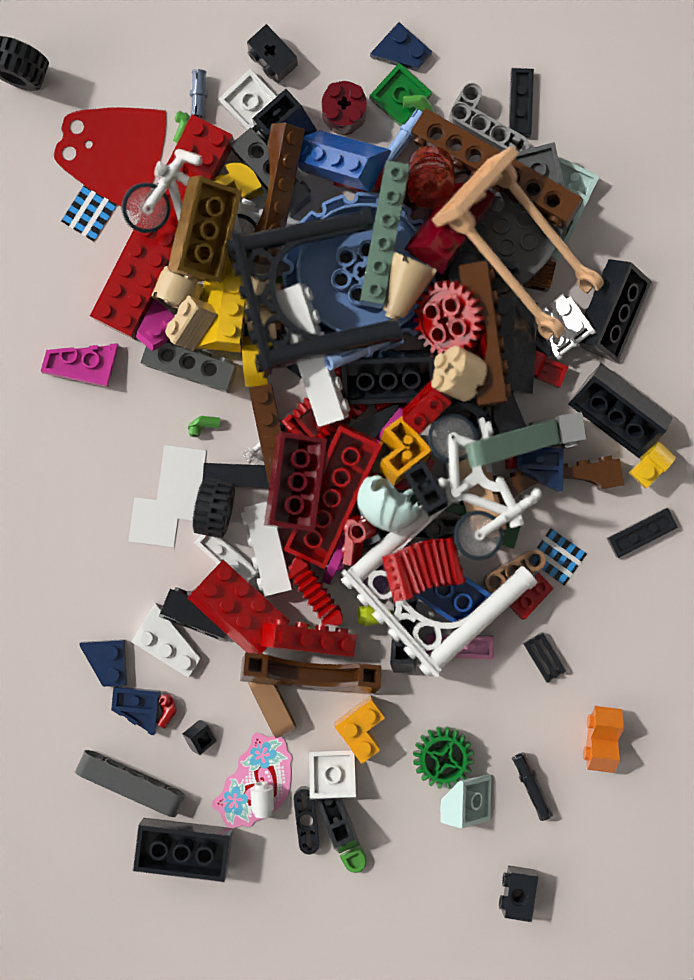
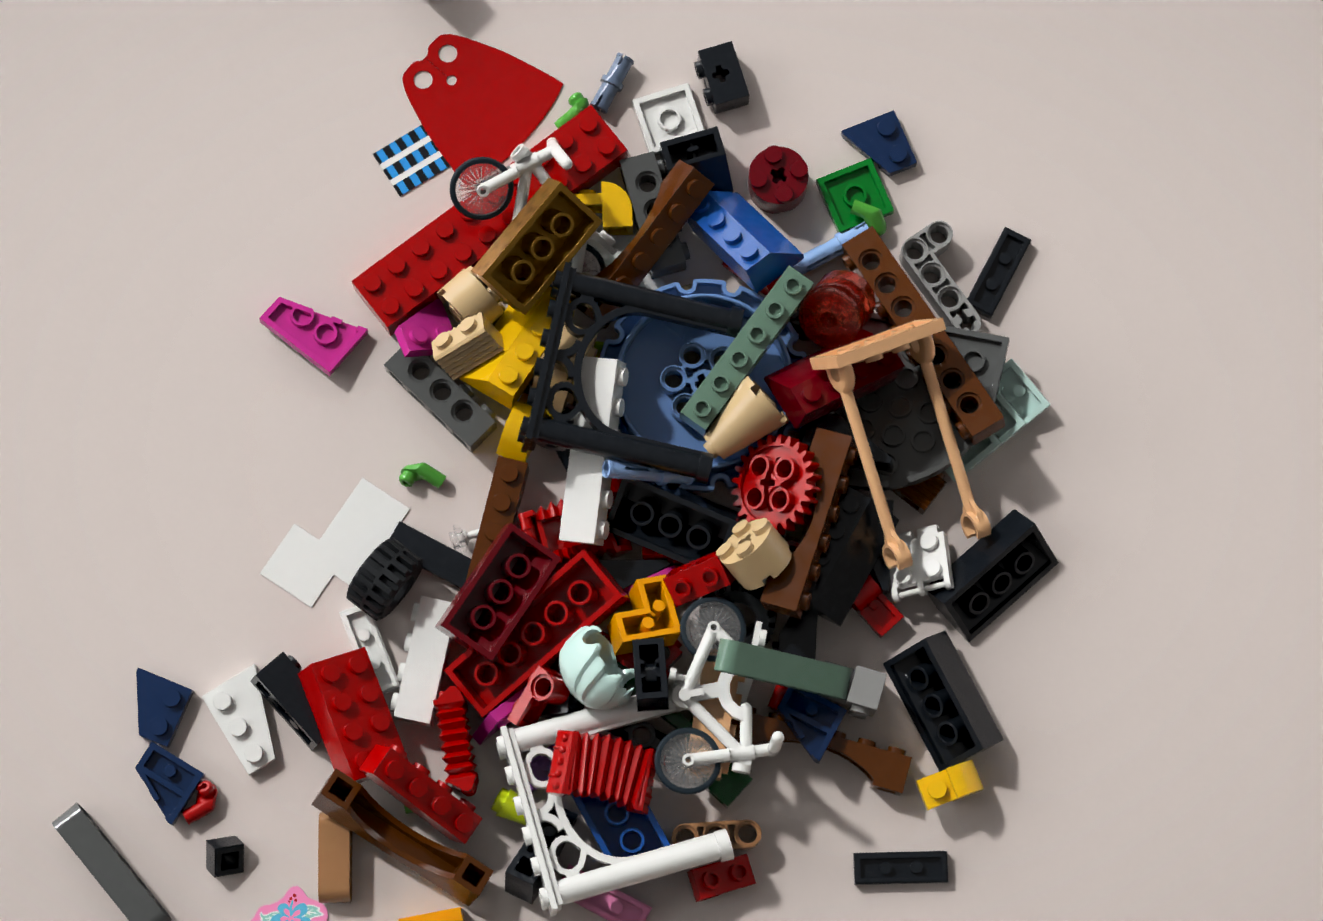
camera: 25 degrees right, 10 degrees down
(560, 555) = (782, 848): sticker -> none

